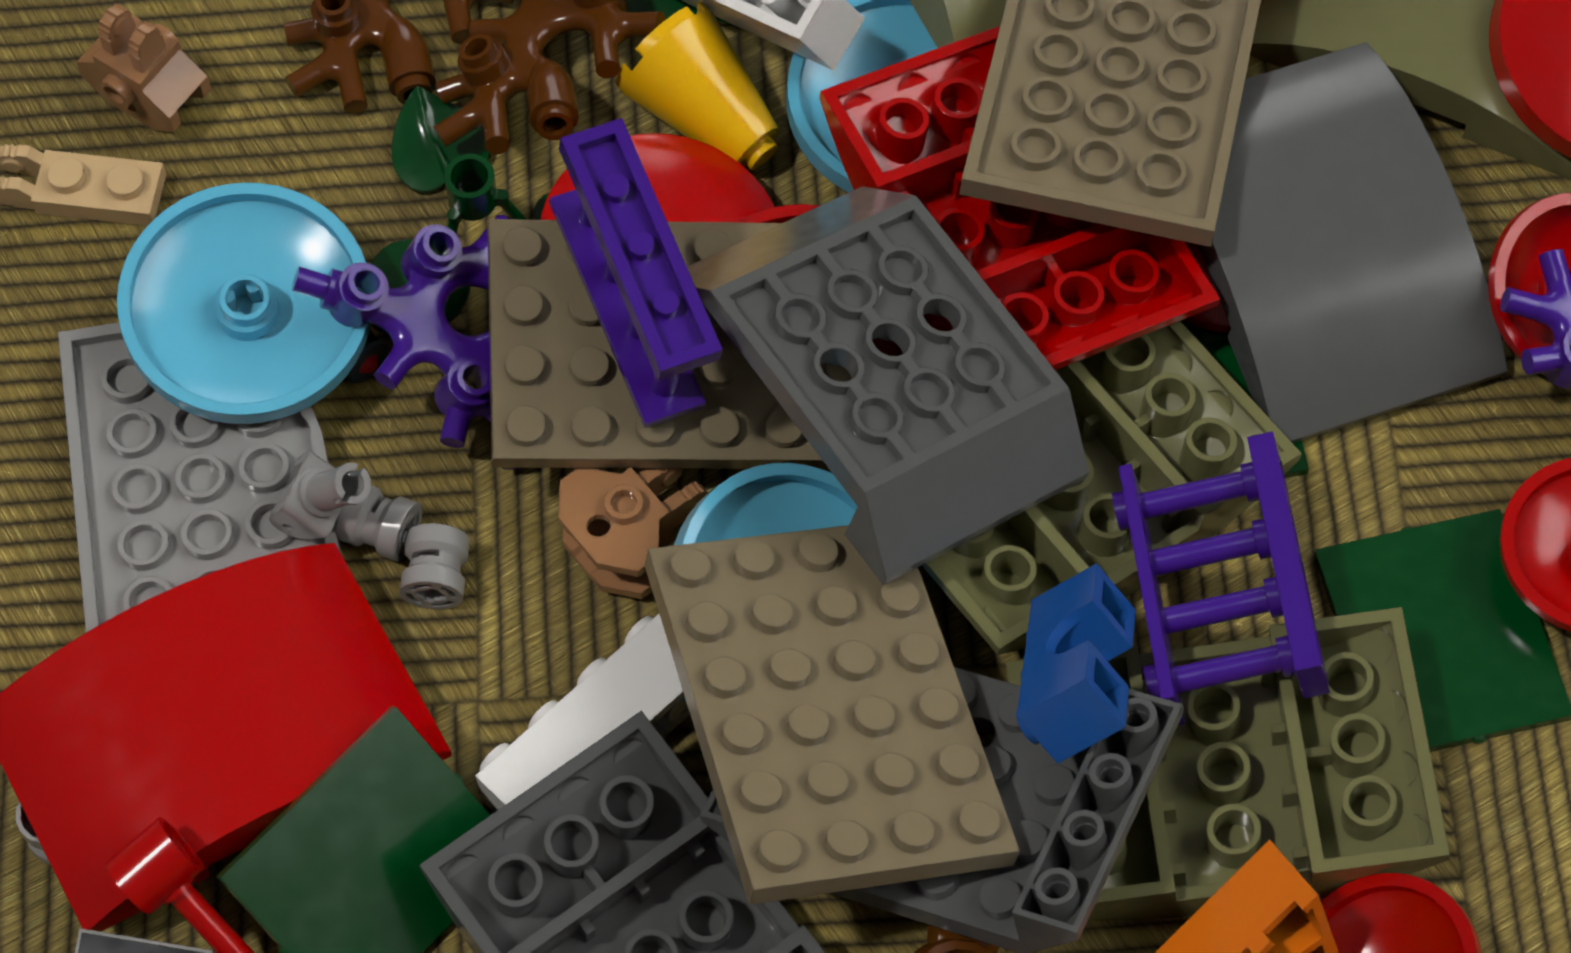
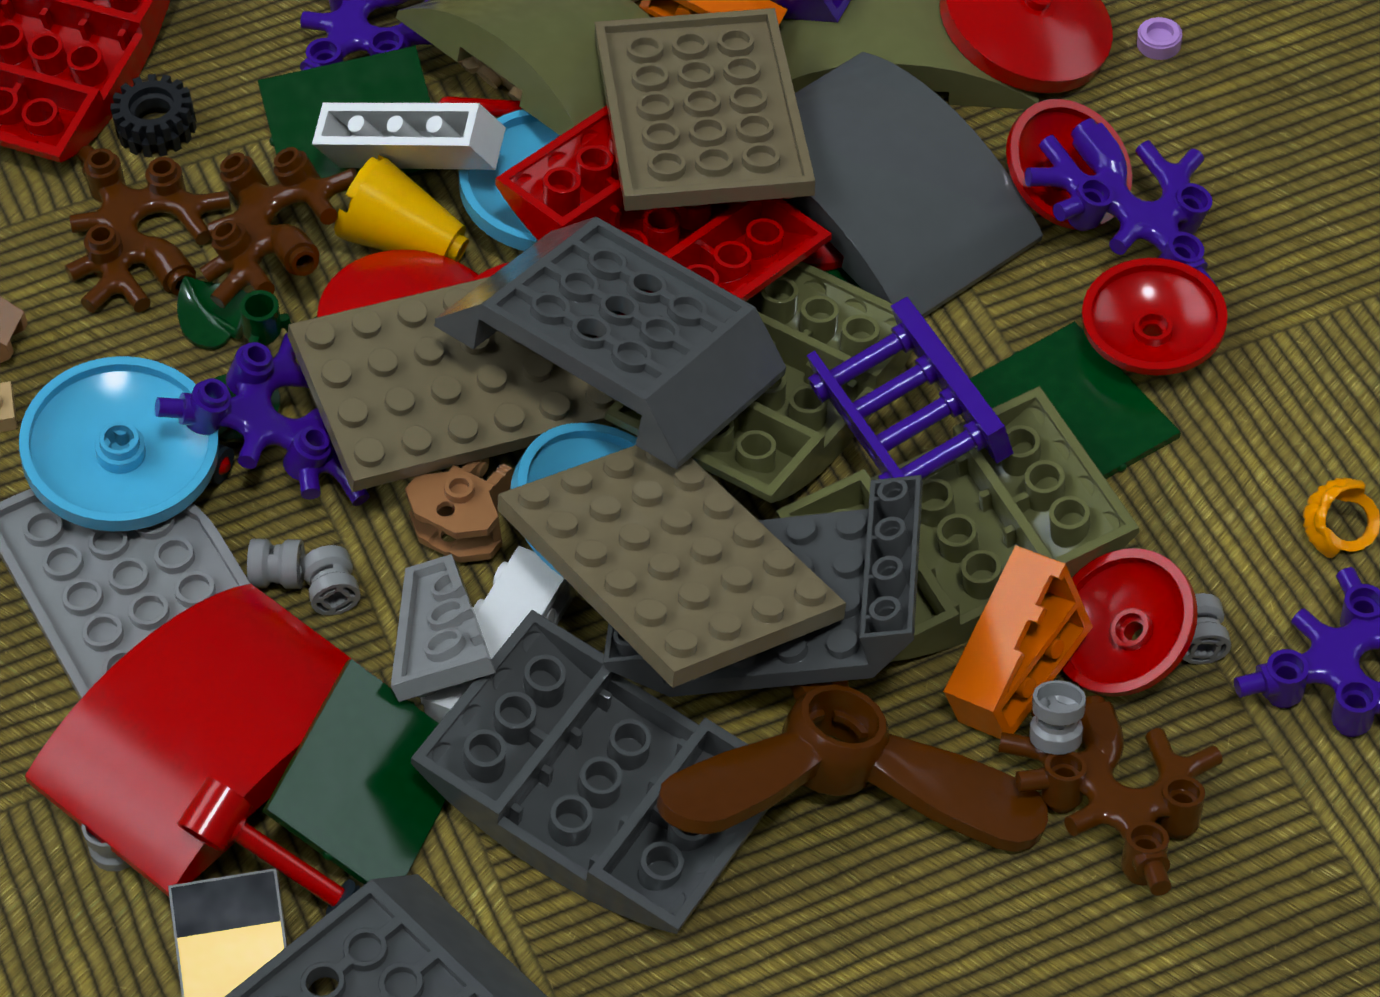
camera: 20 degrees left, 10 degrees down
(319, 496) = (229, 551): light grey piece -> none
(527, 693) = (436, 632): none -> light grey wing
(634, 273) = (418, 315): dark purple fence -> none
(1067, 685) = (832, 478): blue arch -> none

